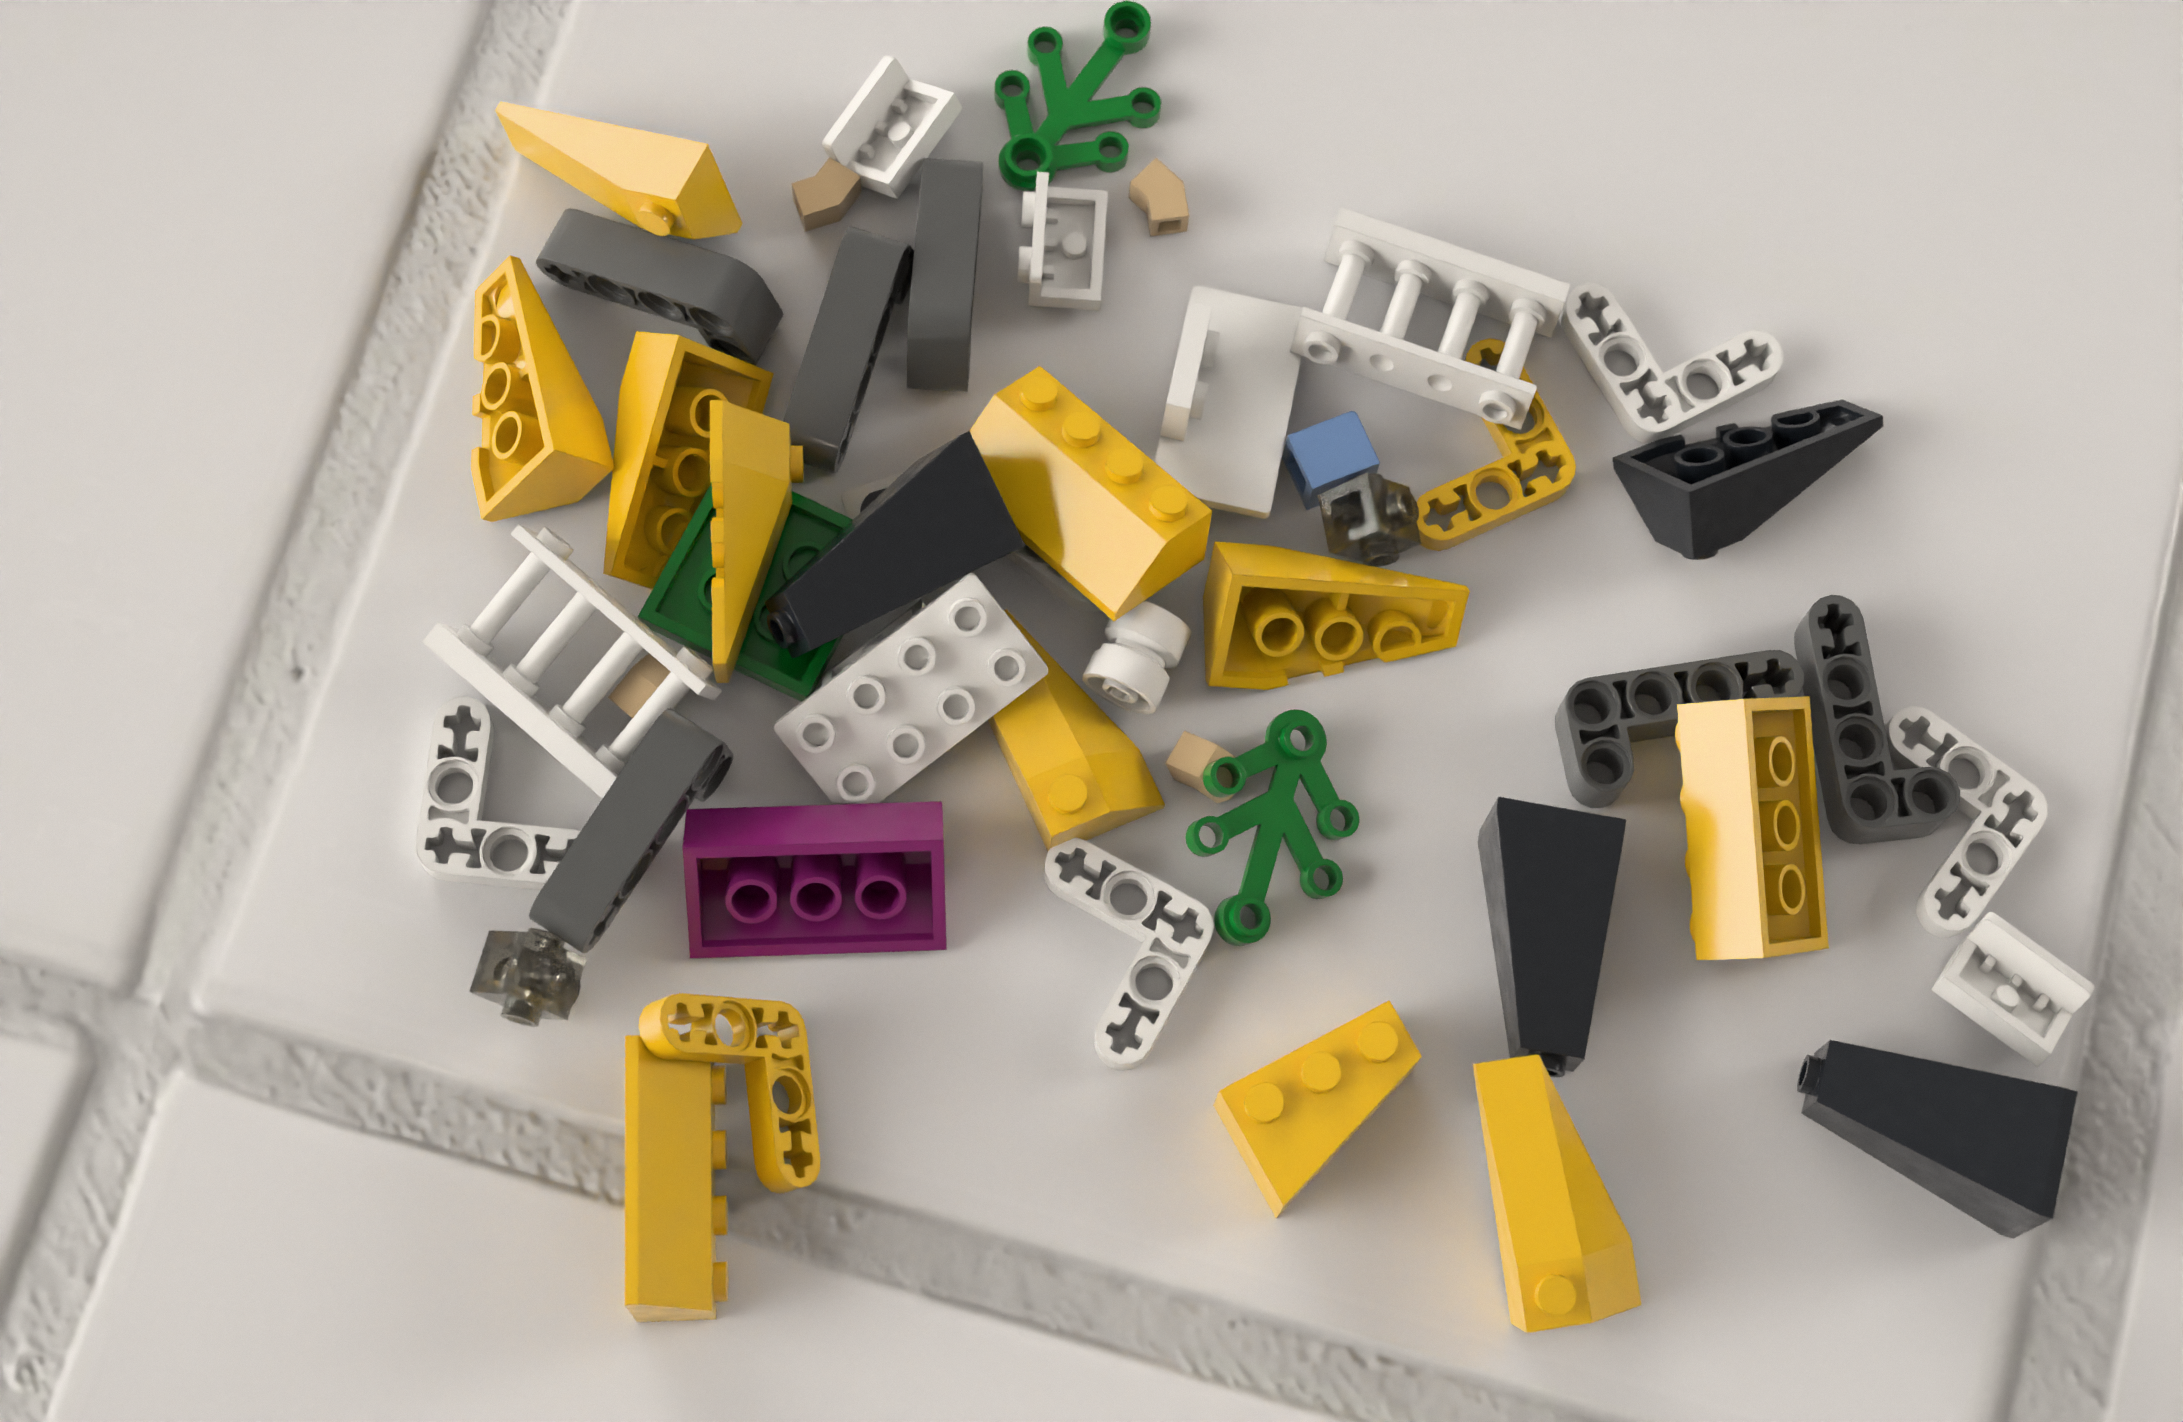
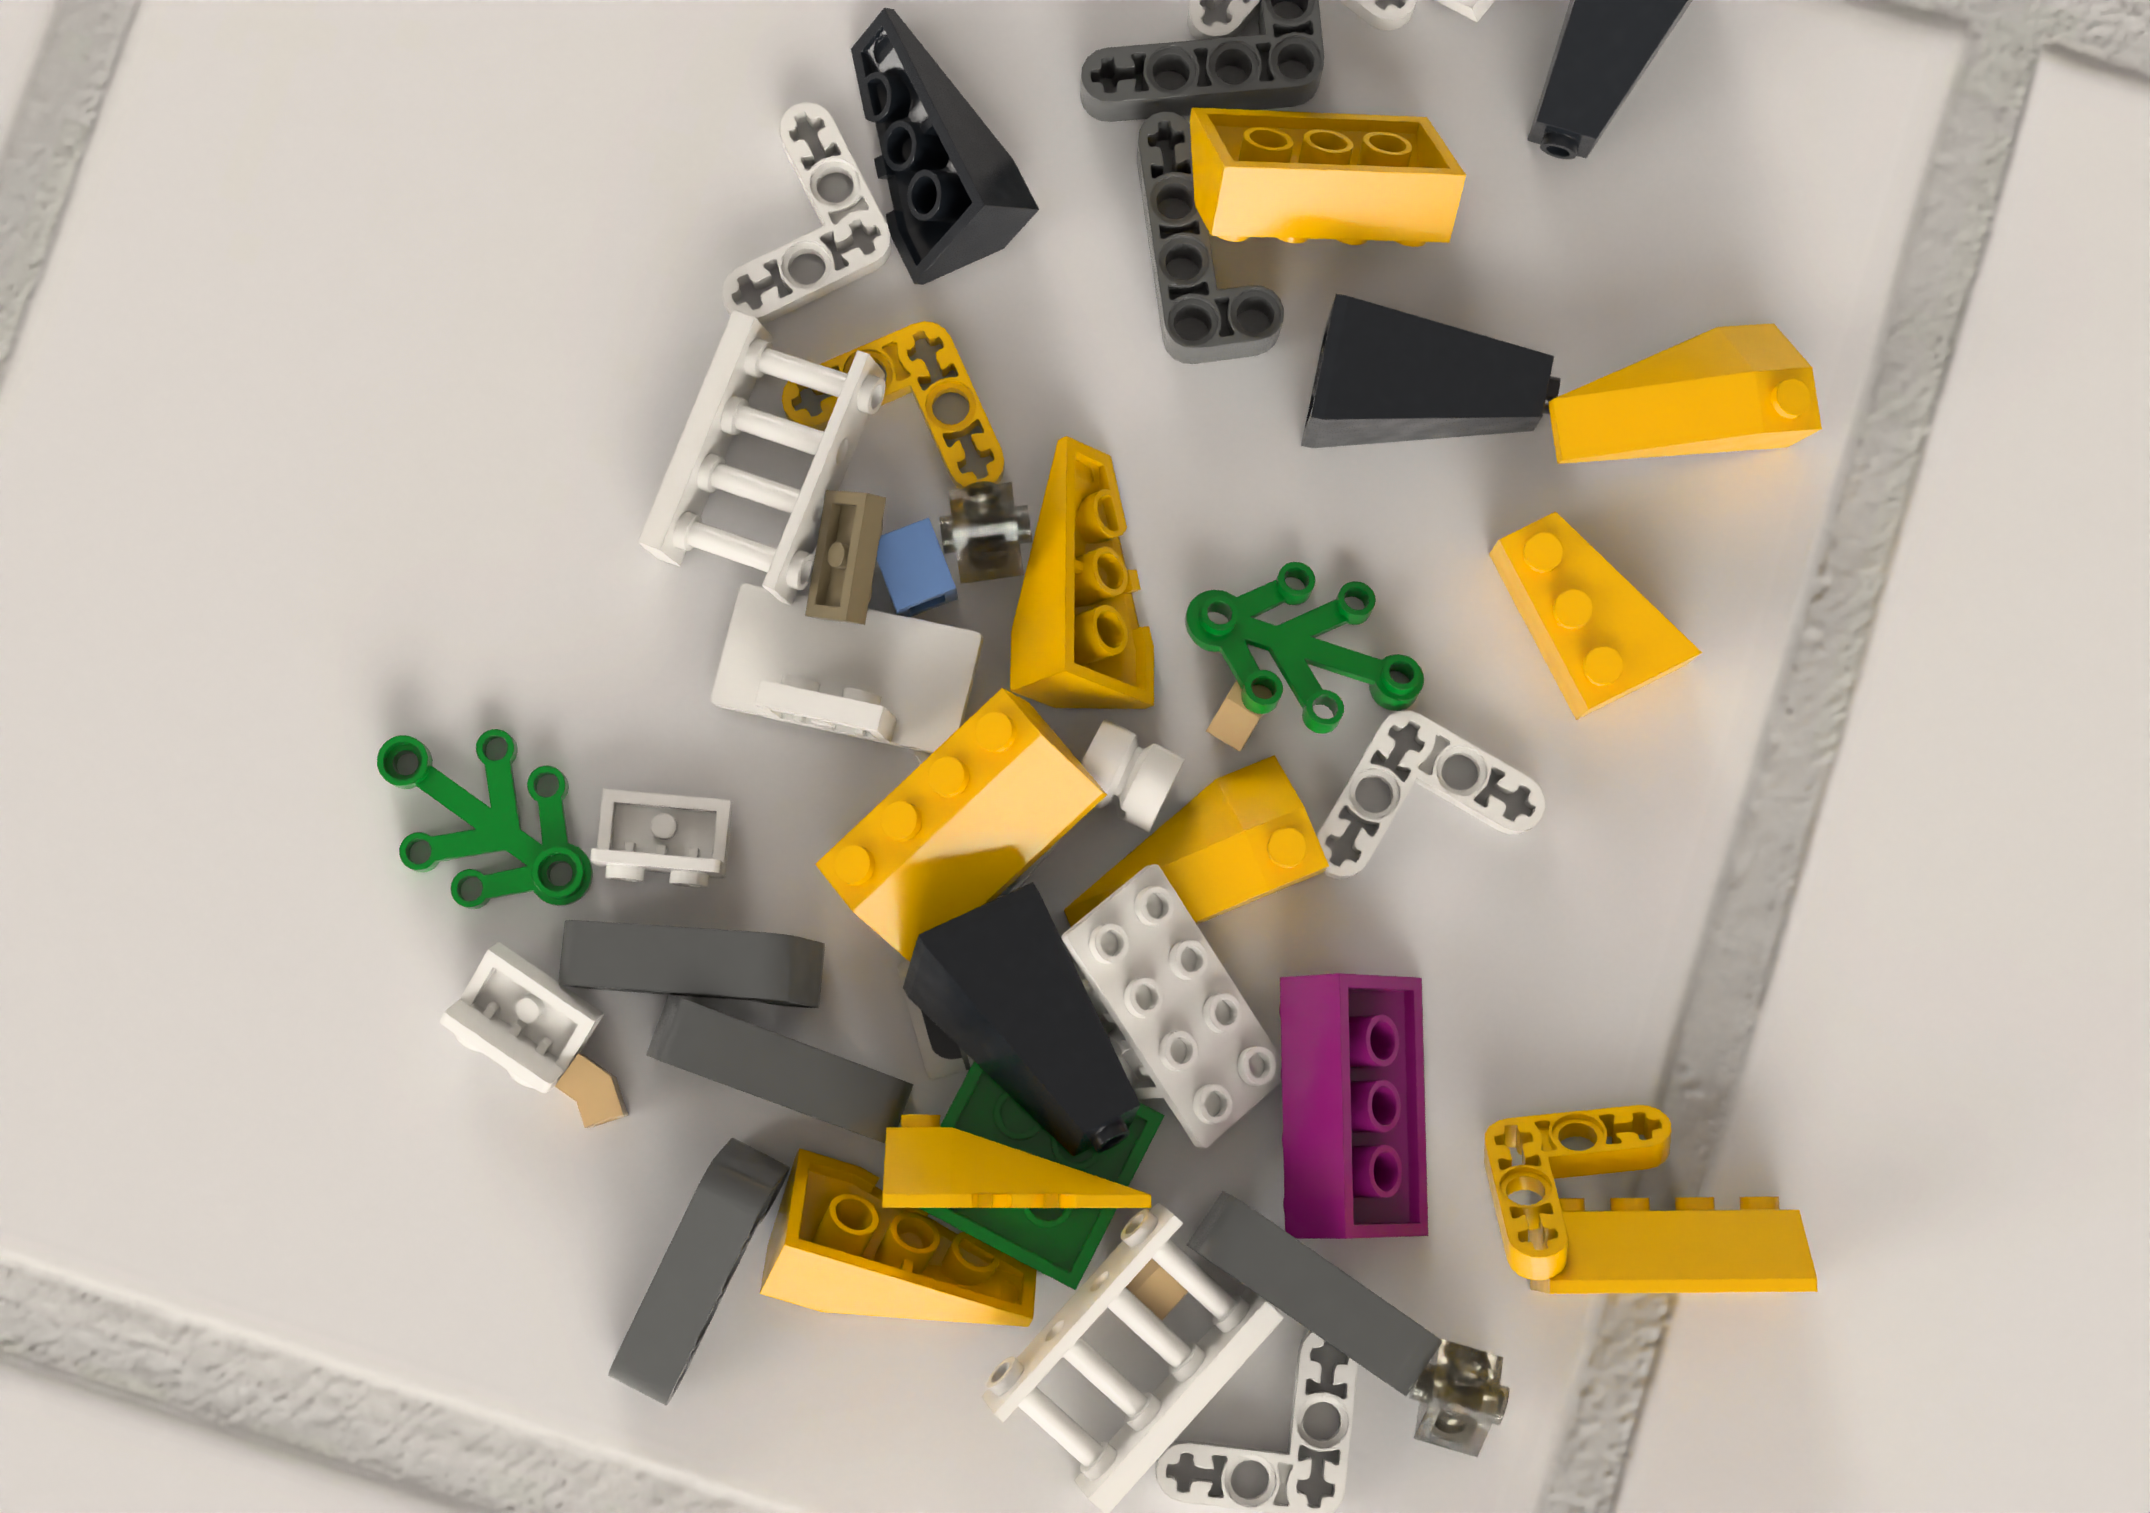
camera: 85 degrees left, 10 degrees up
(538, 419) = (851, 1399): yellow wedge -> none
(639, 174) = (595, 1276): yellow wedge -> none
(1162, 198) = (607, 732): tan piece -> none
(1316, 384) = (845, 556): none -> dark tan plate

